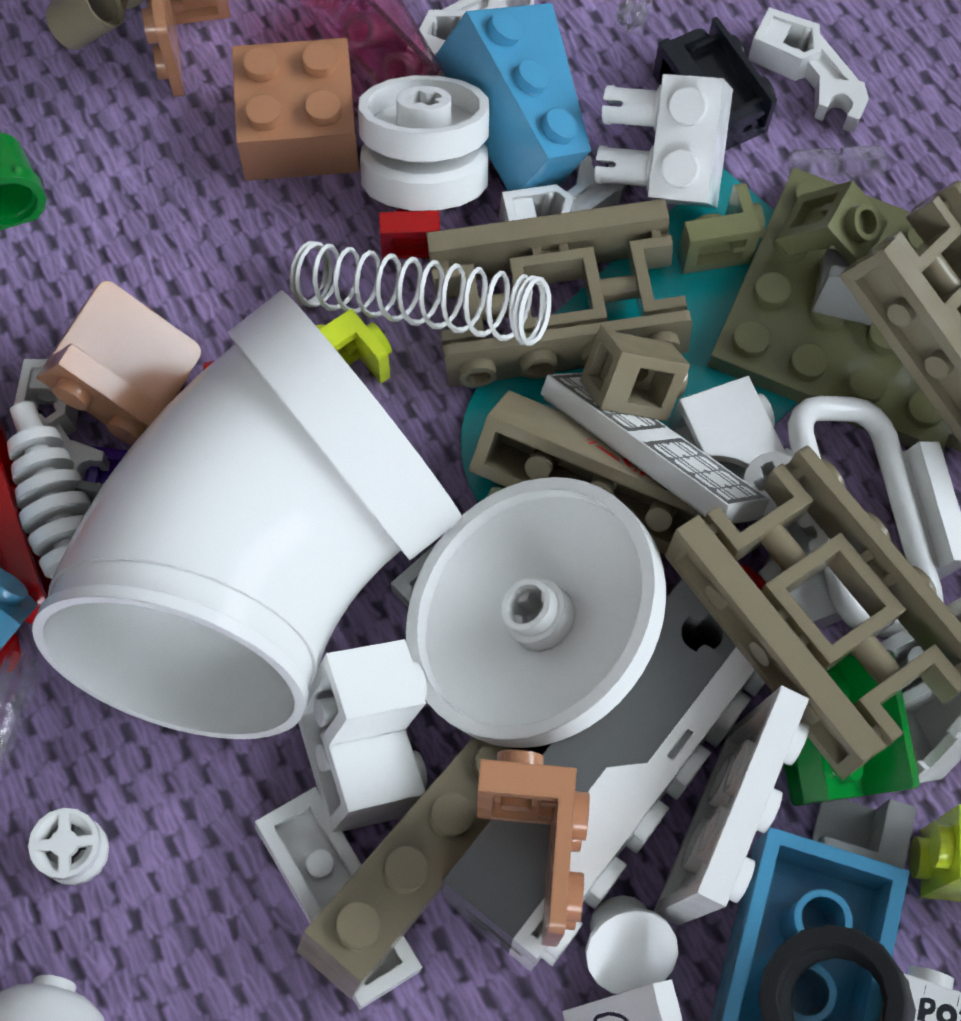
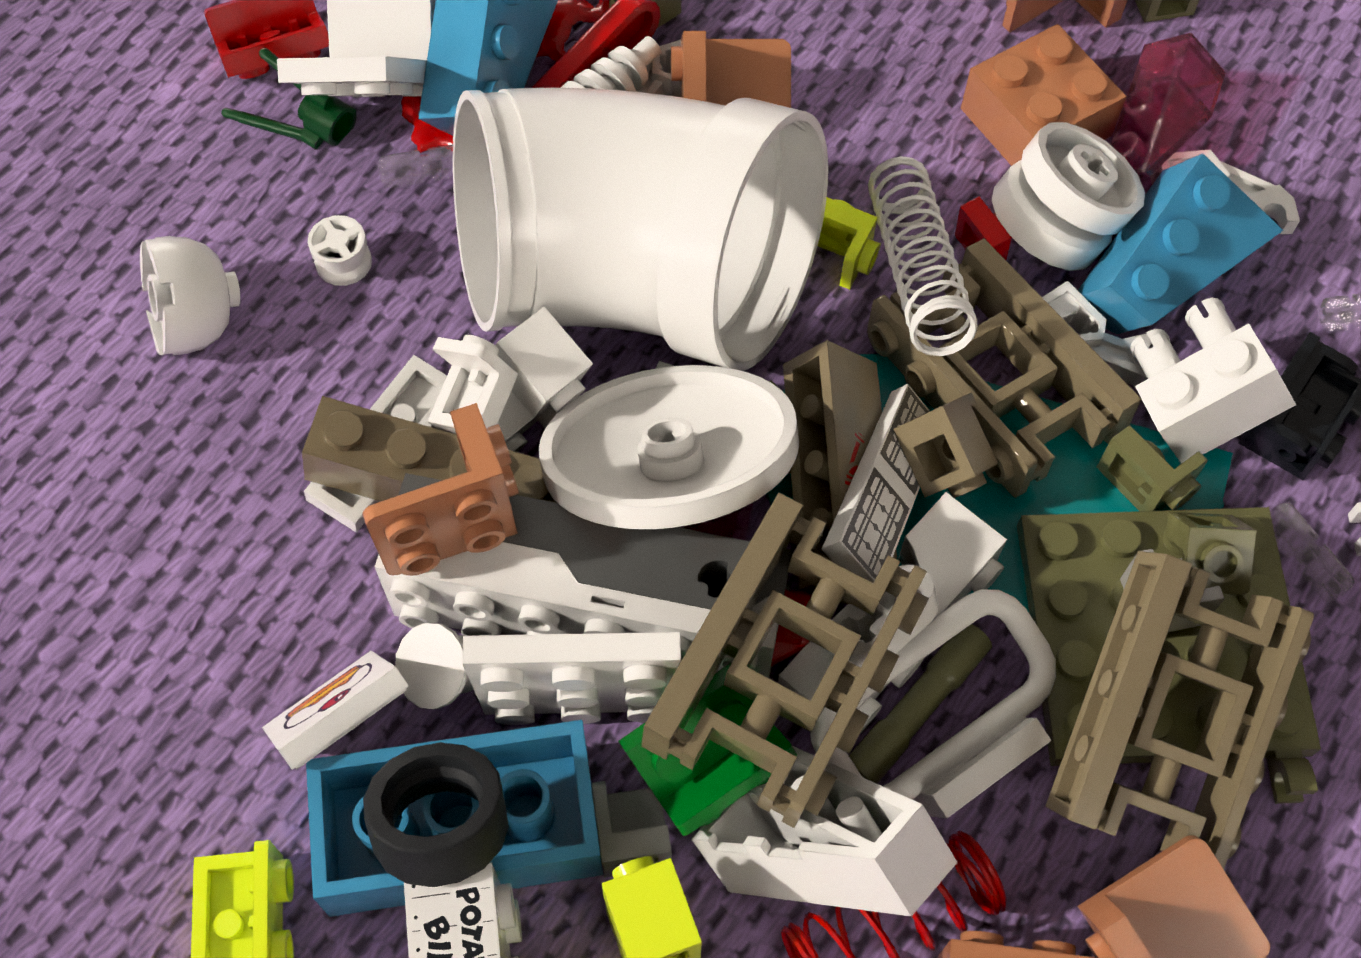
camera: 65 degrees right, 5 degrees down
(375, 772) = (474, 377): none -> white bracket

